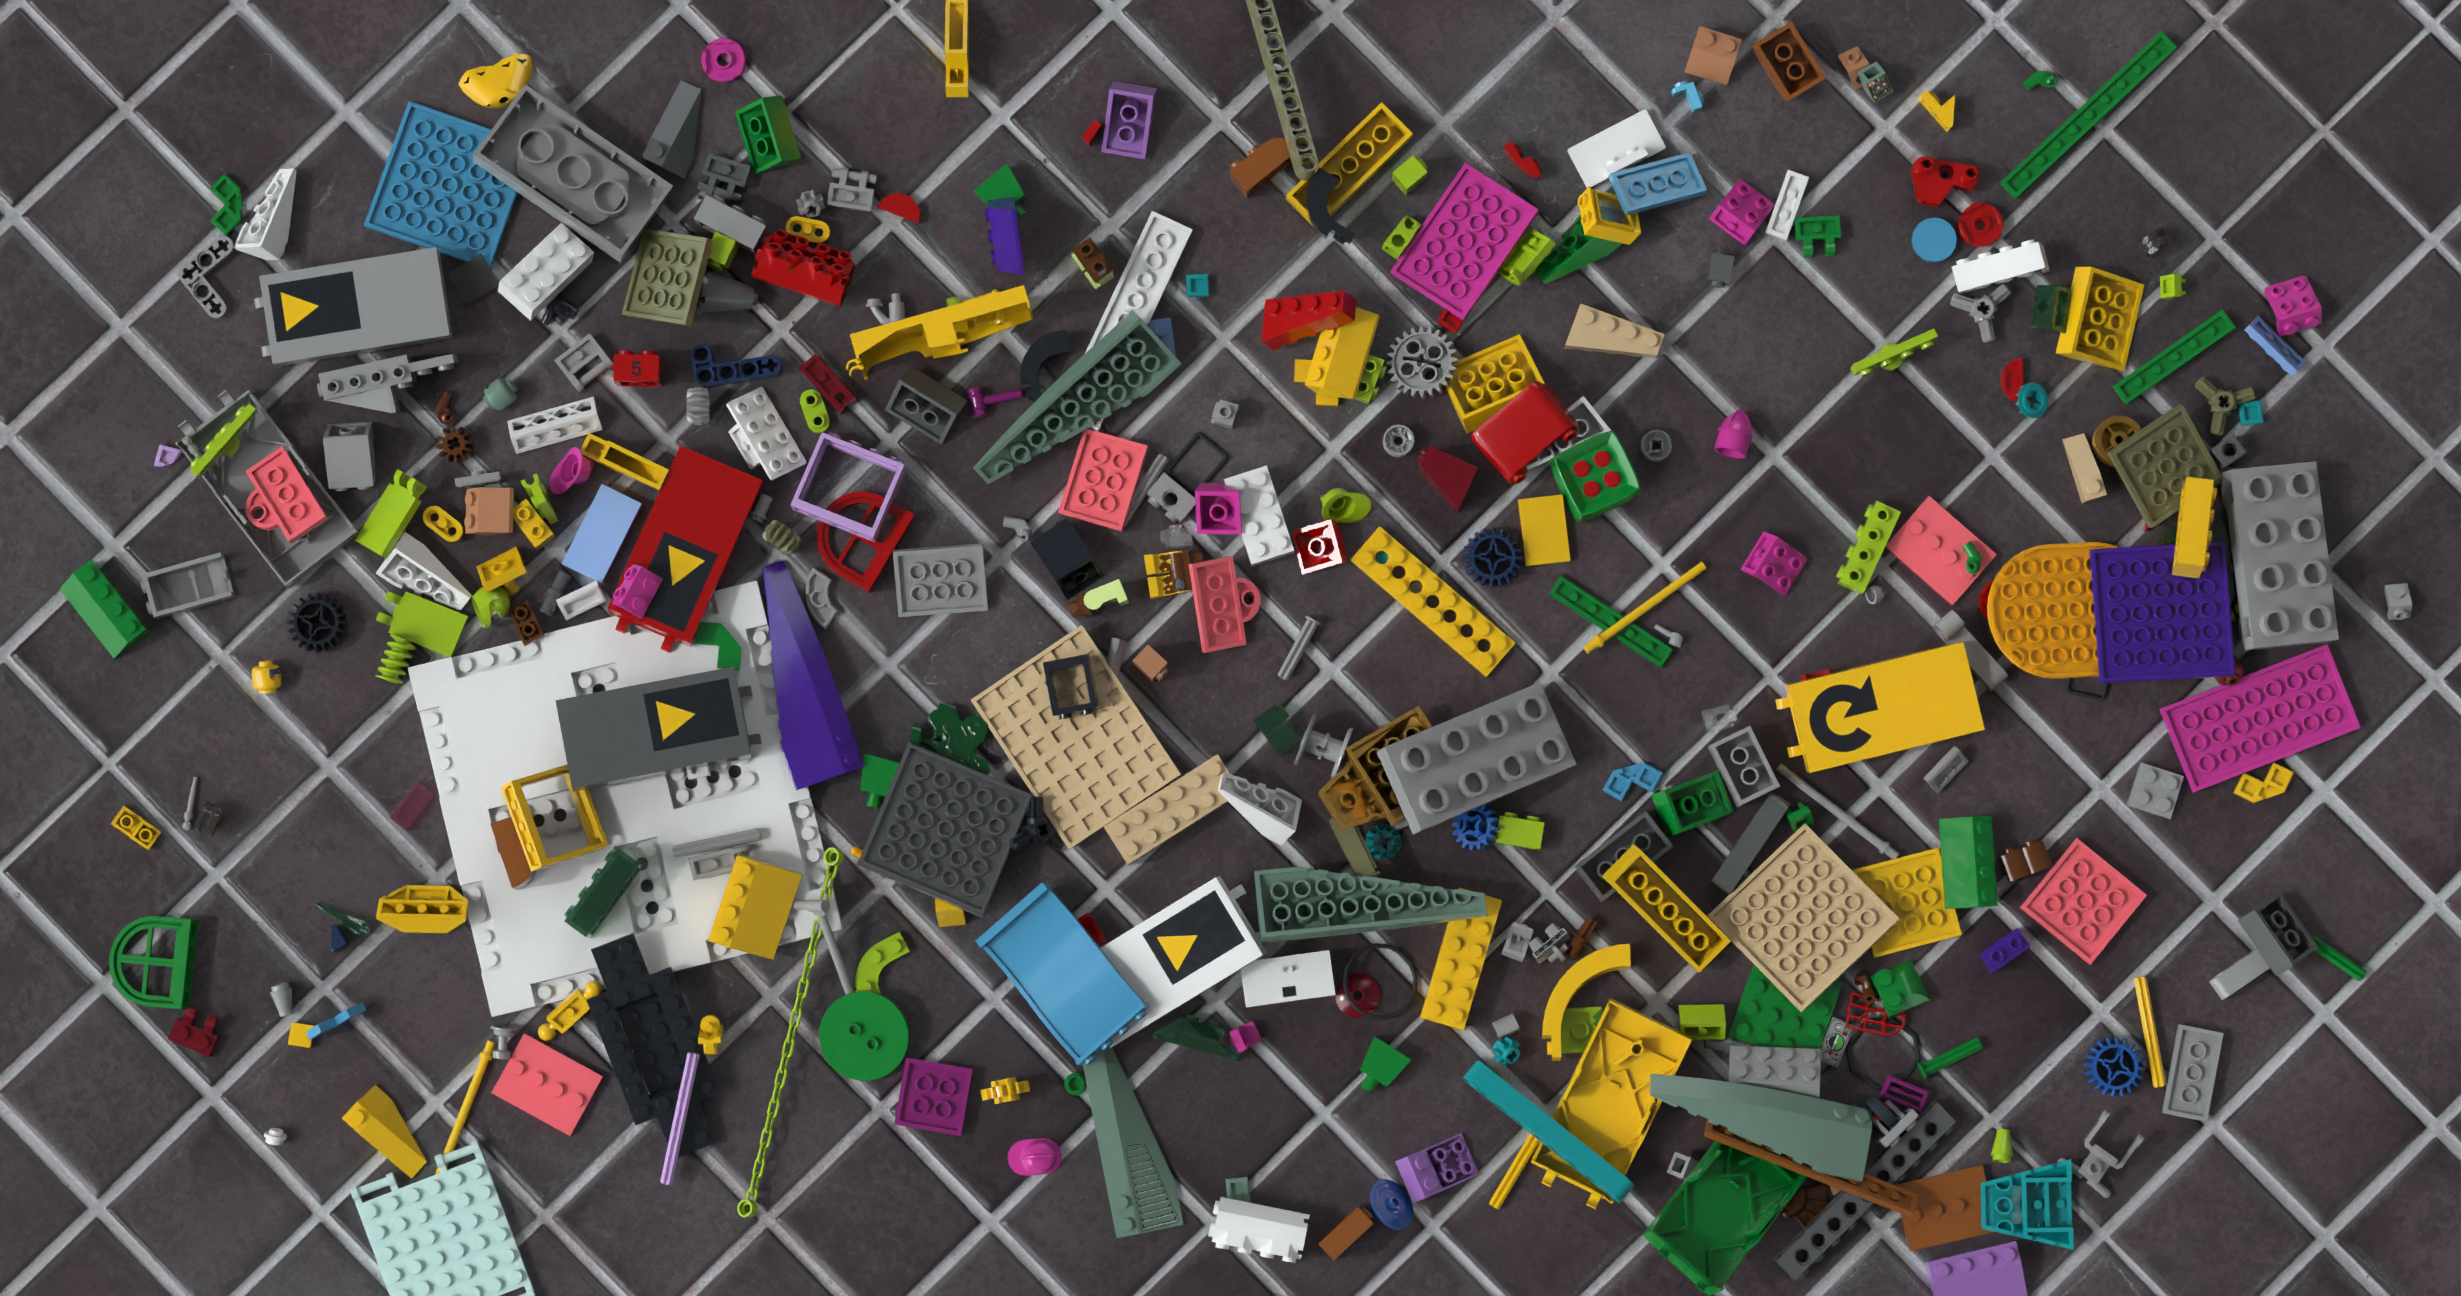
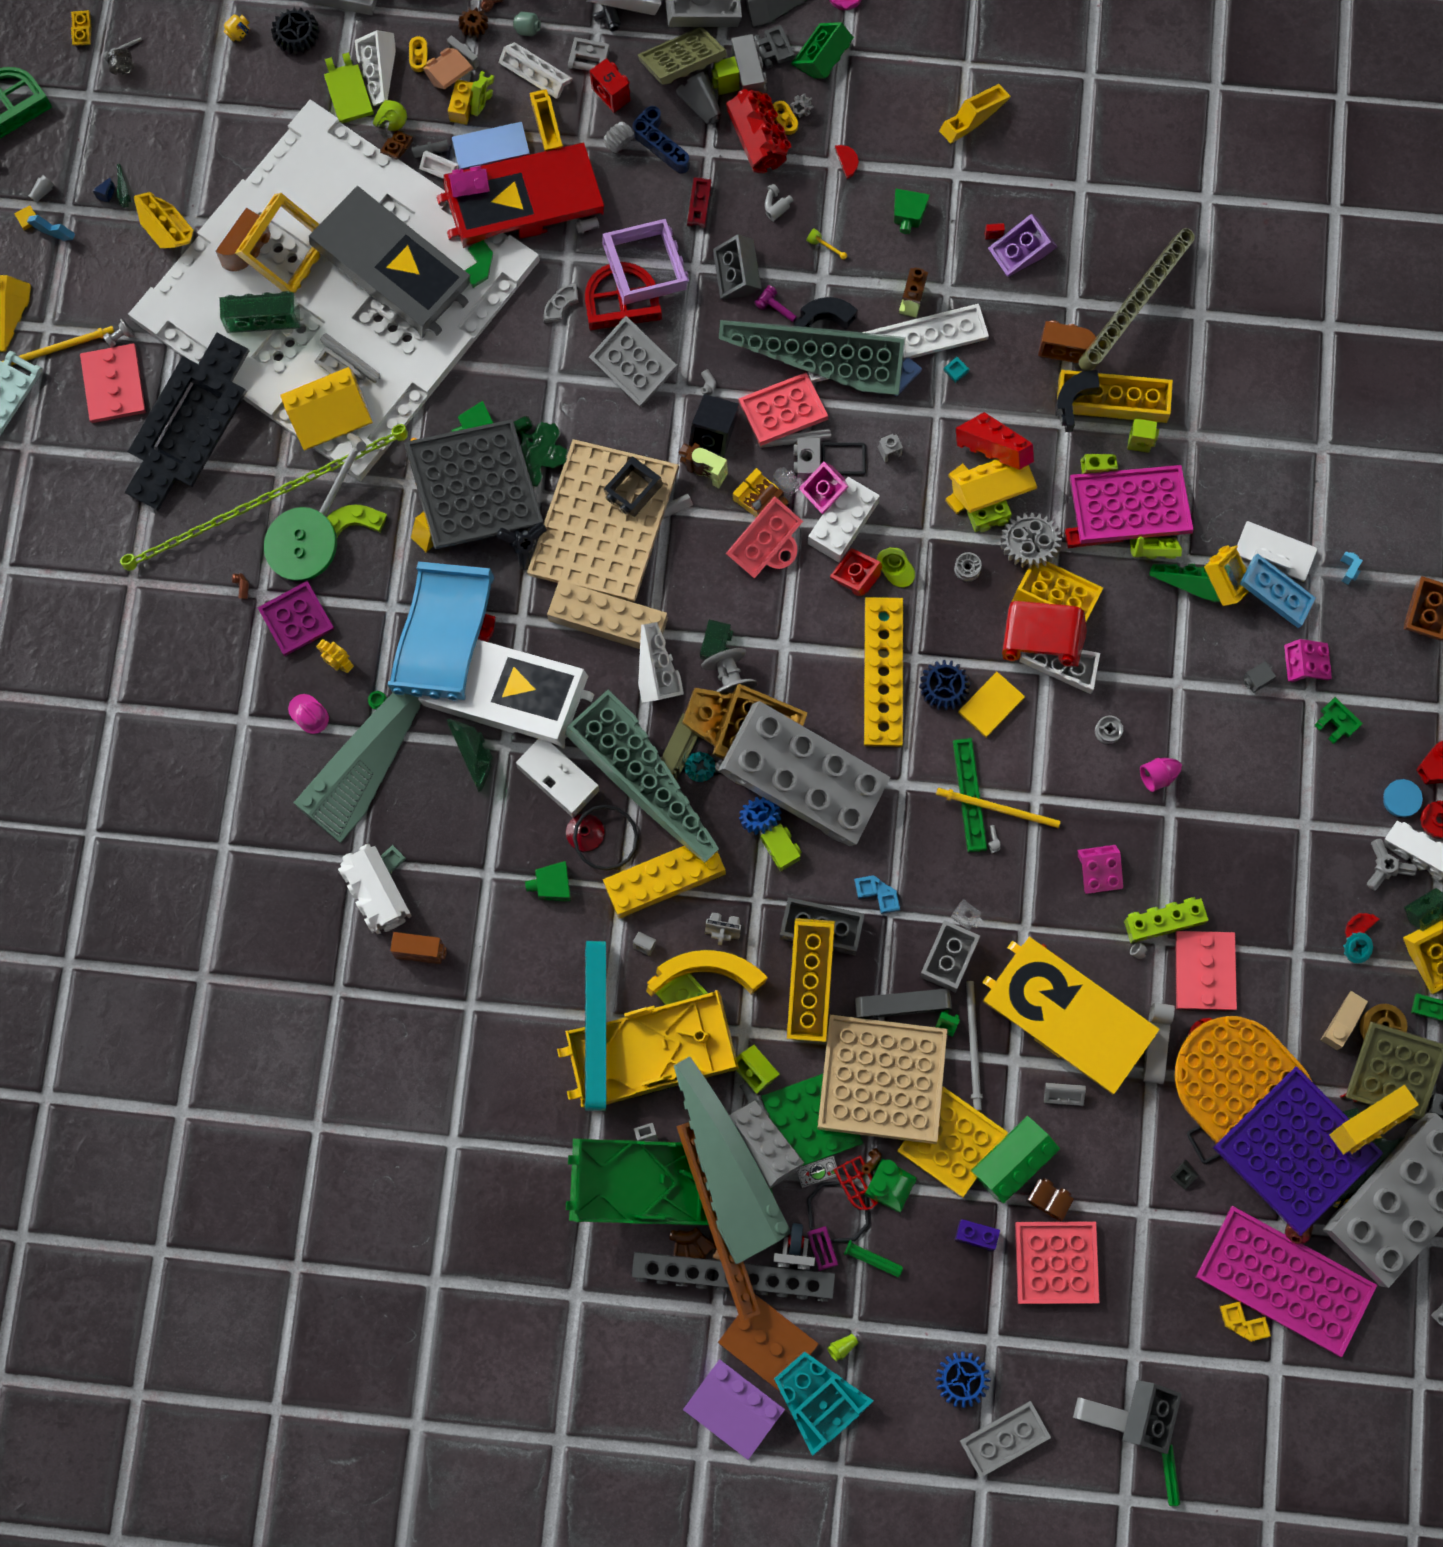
camera: 50 degrees right, 10 degrees down
(391, 514) = (399, 18): lime tile -> none
(396, 659) = (309, 90): lime piece -> none
(412, 806) = (226, 171): clear pink tile -> none
(502, 571) = (416, 107): yellow tile -> none
(569, 1011) = (168, 356): yellow plate -> none
(572, 470) = (516, 101): dark pink piece -> none
(679, 1118) = (152, 472): lavender axle -> none
(710, 1034) = (222, 450): yellow hips -> none
(763, 435) = (634, 189): white bracket -> none
(781, 537) = (578, 248): olive gear -> none
(811, 713) = (479, 351): dark purple wedge -> none
(814, 411) = (676, 208): lime plate -> none
(848, 196) = (827, 125): light grey plate -> none
(859, 1119) = (243, 585): none -> copper arm
(941, 330) = (791, 230): yellow piece -> none
(1005, 235) = (884, 227): dark purple slope -> none
(1151, 664) = (690, 526): nougat brick -> none
(1245, 1036) = (496, 780): dark pink bracket -> none
(1298, 648) = (780, 612): light grey axle -> none
(1391, 1204) = (461, 963): blue shield -> none
(1437, 1168) = (512, 975): medium lavender slope -> none
(1447, 475) = (974, 612): dark red slope -> none
(1506, 1050) = (627, 956): teal gear -> none
(1514, 1171) = (549, 1028): yellow axle -> none
(1517, 941) = (707, 904): light grey bracket -> none
(1527, 166) = (1213, 501): red slope -> none
(1581, 937) = (744, 944): reddish brown axle -> none
(1595, 476) = (1054, 701): green piece -> none
(1610, 334) = (1155, 643): tan wedge -> none
(1692, 803) = (896, 944): green slope -> none
(1713, 55) = (1390, 561): nougat slope -> none
(1787, 205) = (1338, 685): white plate -> none
(1893, 354) = (1305, 830): lime plate -> none
(1974, 558) = (1221, 994): green arm -> none
(2099, 725) = (1184, 1175): none -> pearl dark grey slope
(2099, 1160) = (889, 1422): light grey piece -> none
(2149, 1031) = (1007, 1385): yellow axle -> none
(2155, 790) = (1174, 1250): light grey plate -> none

